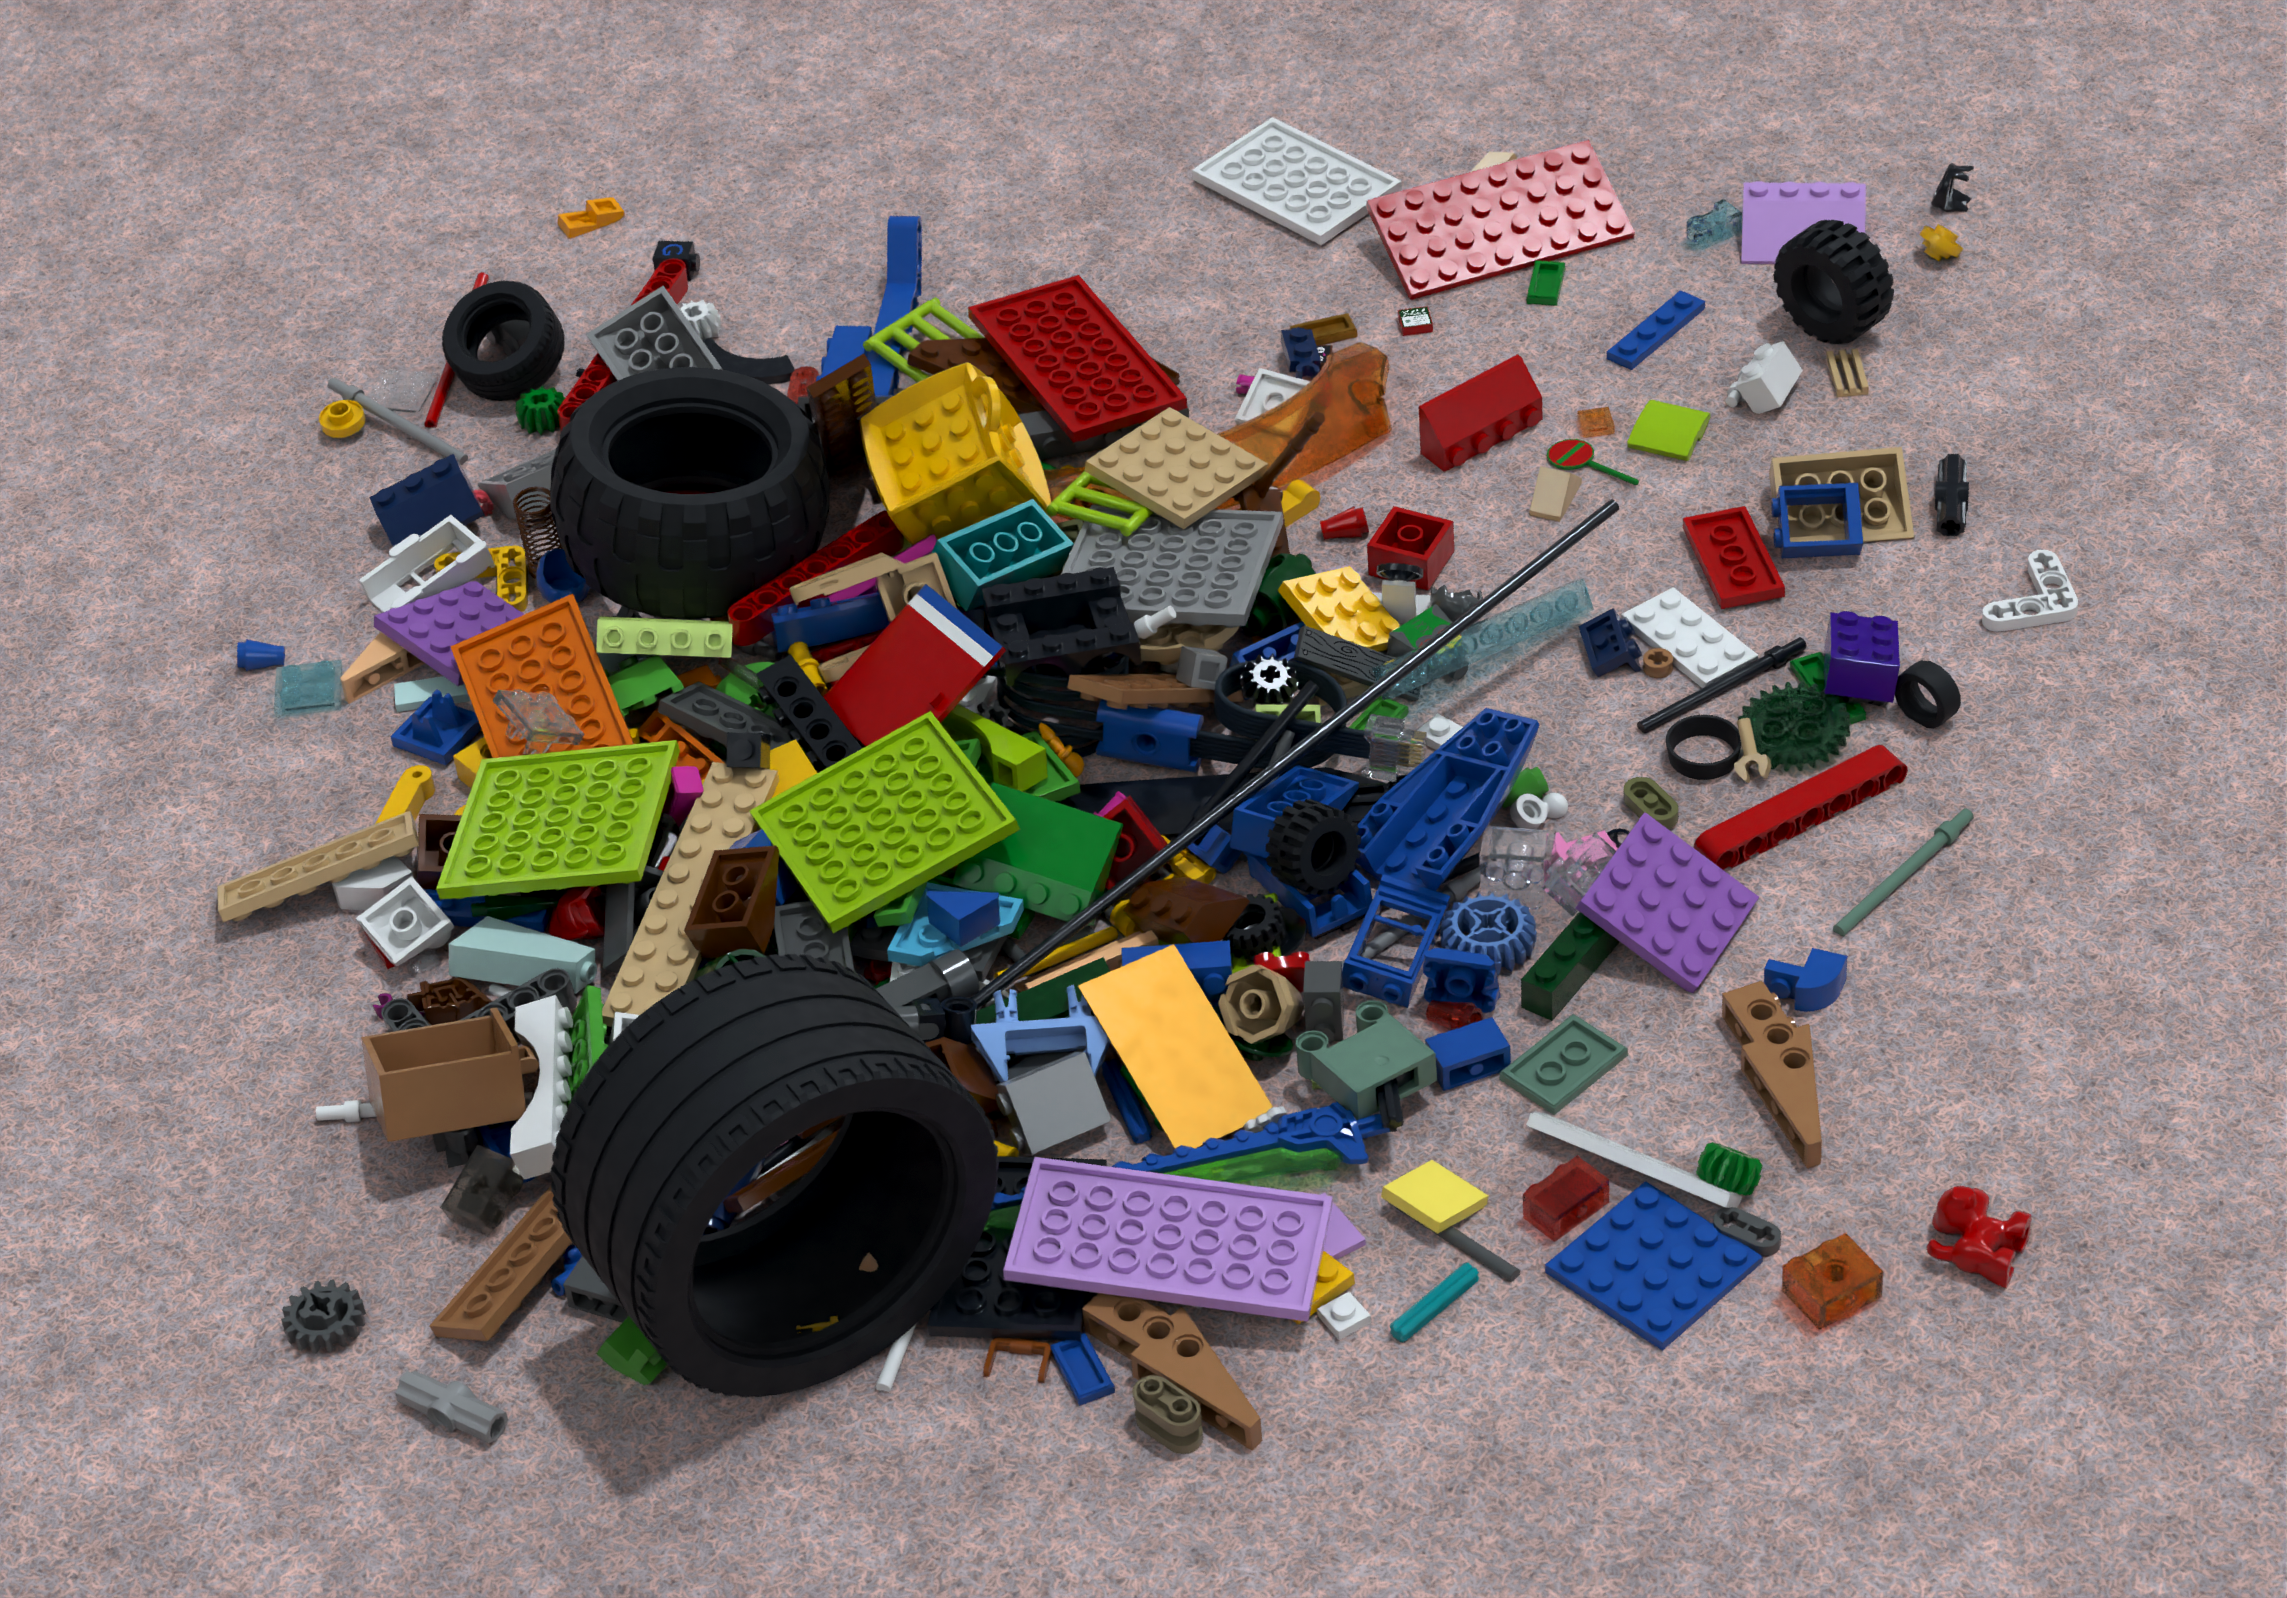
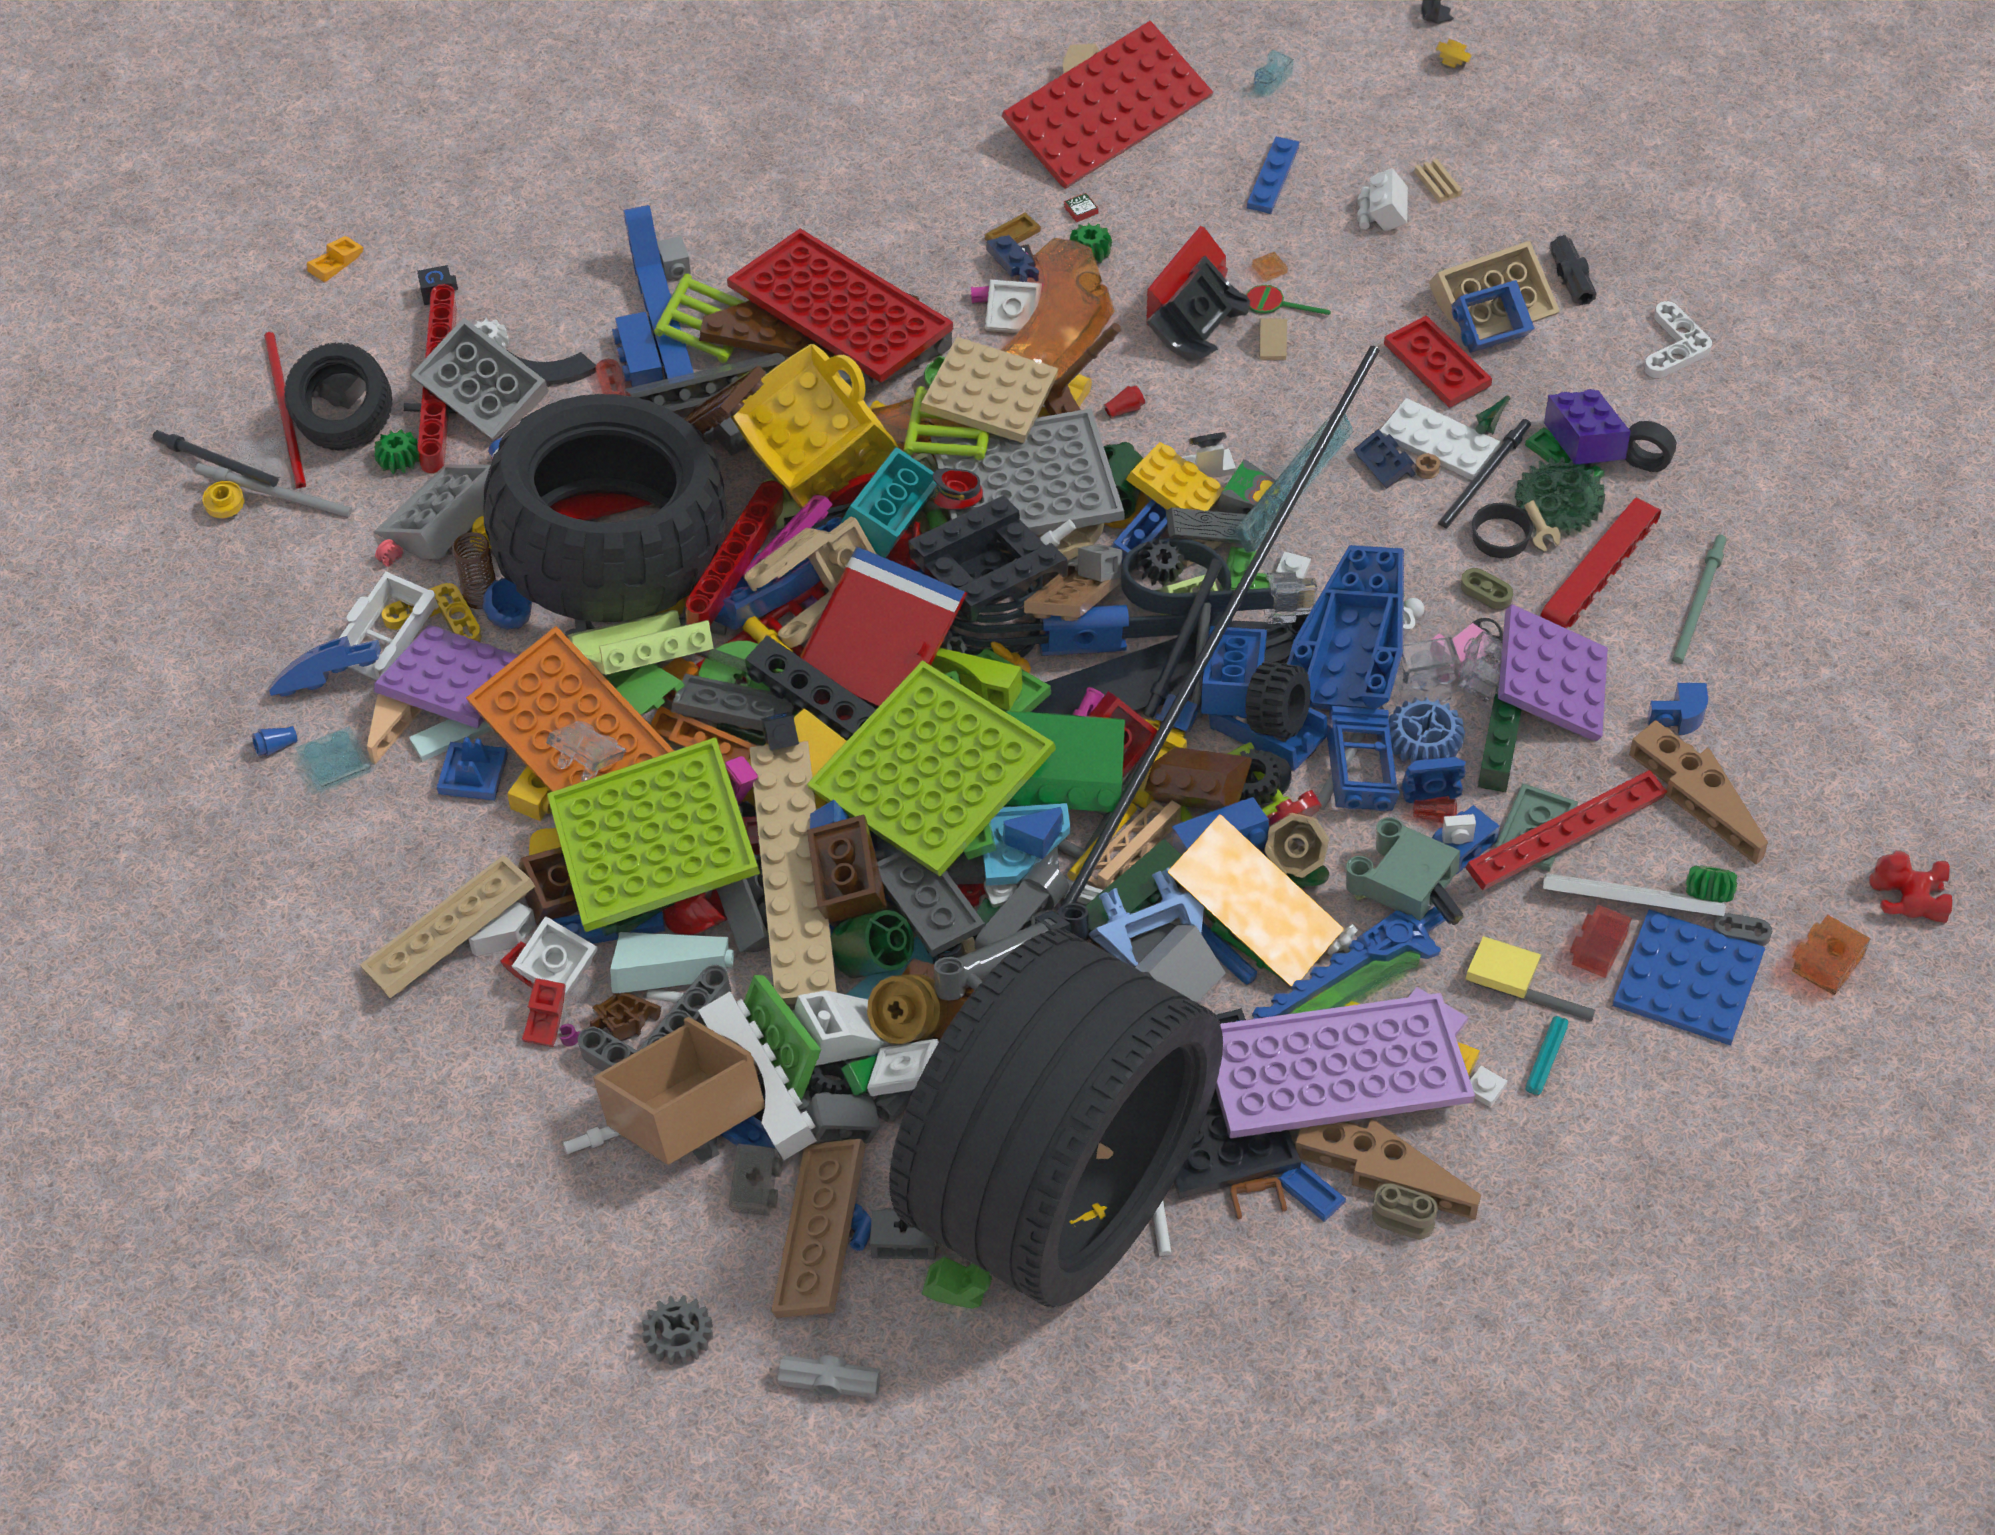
camera: 25 degrees left, 10 degrees up
(332, 359) = (178, 444): none -> black bar
(342, 590) = (313, 666): none -> blue slope
(373, 970) = (545, 1012): none -> red slope
(409, 793) = (482, 830): yellow leg -> none
(426, 500) = (351, 565): dark blue slope -> none
(937, 281) = (674, 257): none -> light grey brick
(1075, 552) = (956, 488): none -> red piece
(1295, 180) = (919, 101): white plate -> none
(1324, 998) = (1341, 824): dark grey brick -> none
(1405, 356) = (1095, 238): none -> green gear
(1412, 540) = (1191, 410): red brick -> none
(1452, 1033) = (1458, 829): none -> white plate
(1453, 604) = (1254, 452): dark grey hair -> none
(1475, 444) = (1197, 311): none -> black piece
(1546, 283) = (1166, 151): green tile -> none
(1590, 1070) = (1565, 830): none -> red plate
(1668, 430) = (1330, 261): lime slope -> none
(1756, 628) = (1489, 418): none -> dark green piece
(1782, 210) = (1341, 58): lavender slope -> none
(1860, 276) = (1418, 87): black tyre -> none

